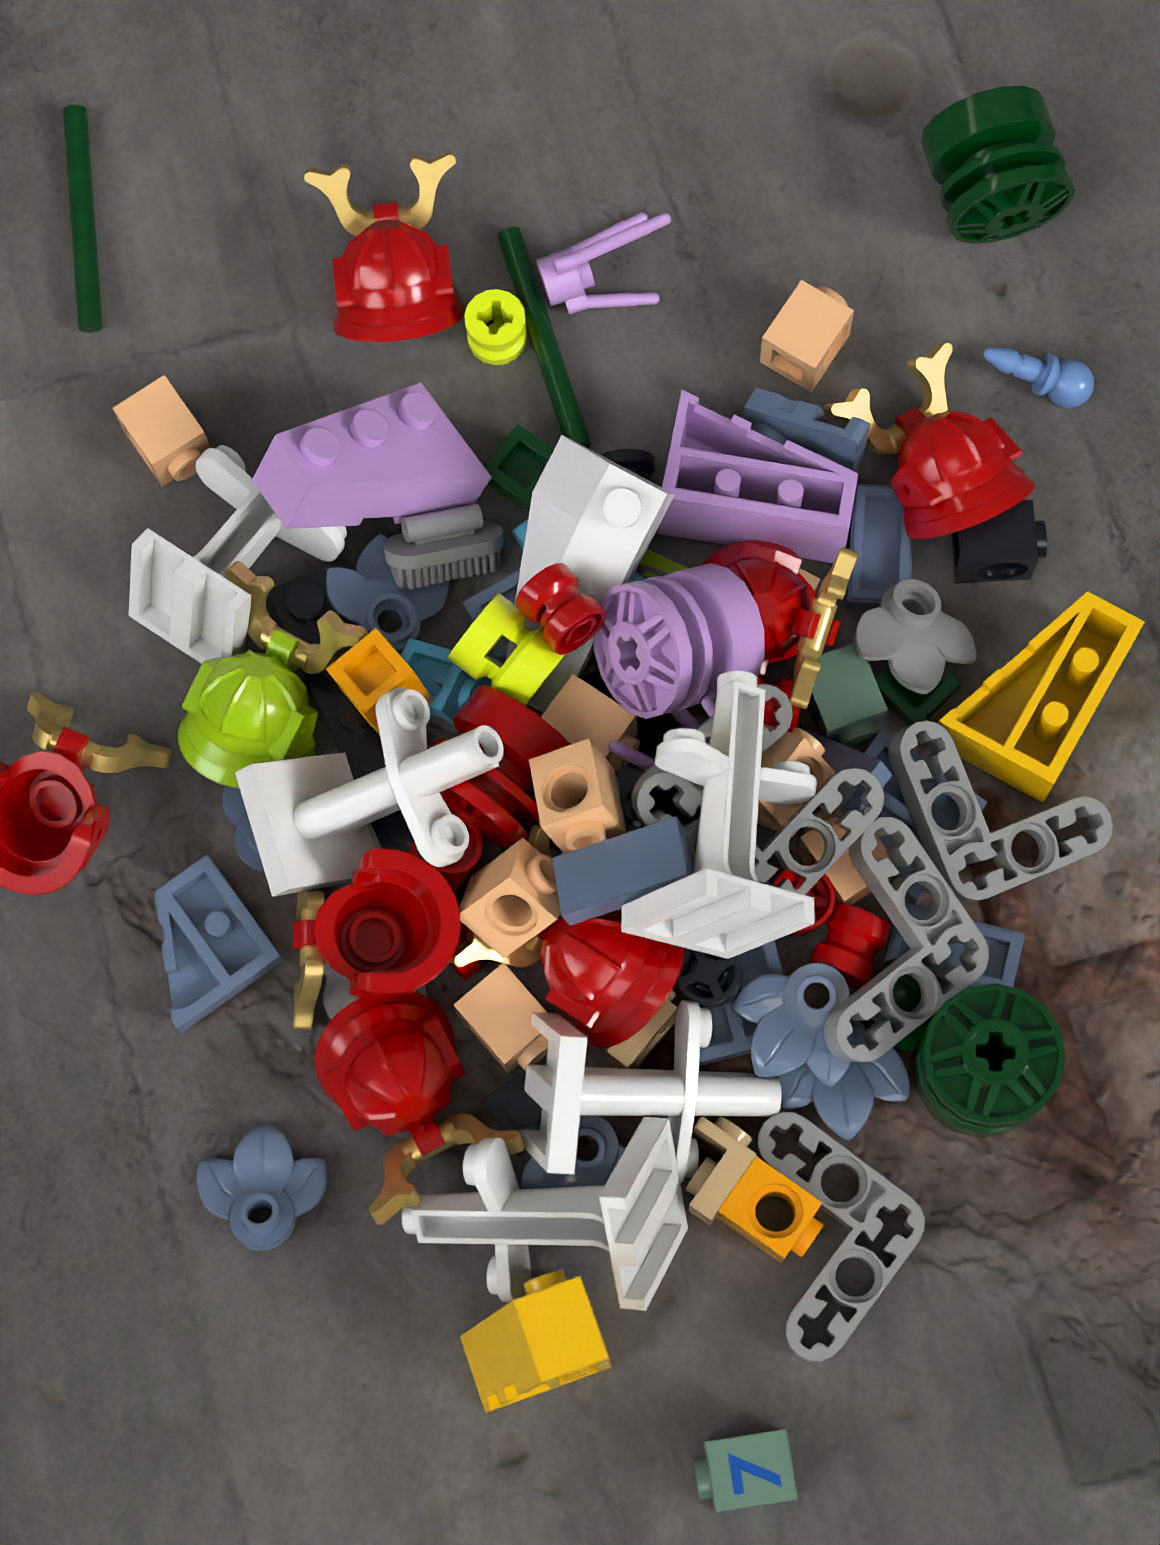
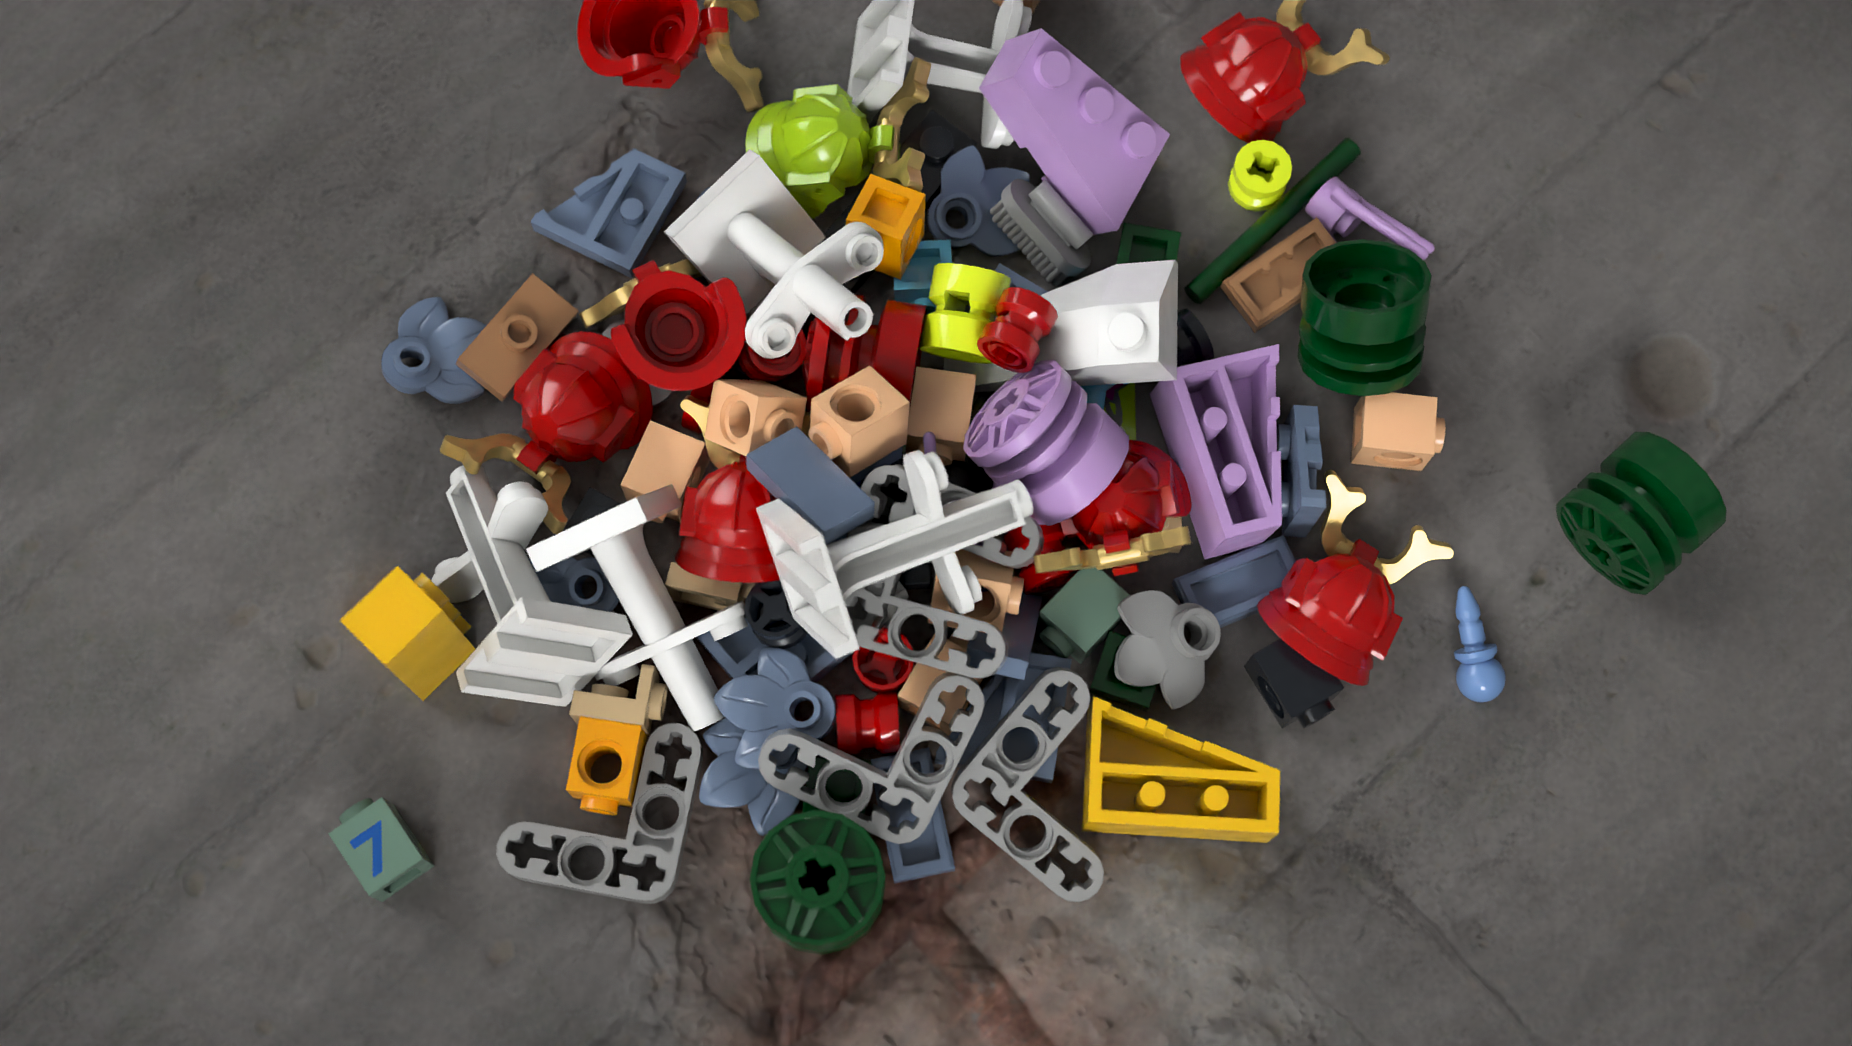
camera: 55 degrees right, 0 degrees up
(289, 1099) = (516, 337): none -> medium nougat plate
(605, 354) = (1274, 279): none -> medium nougat plate
(696, 301) = (1363, 317): none -> dark green wheel

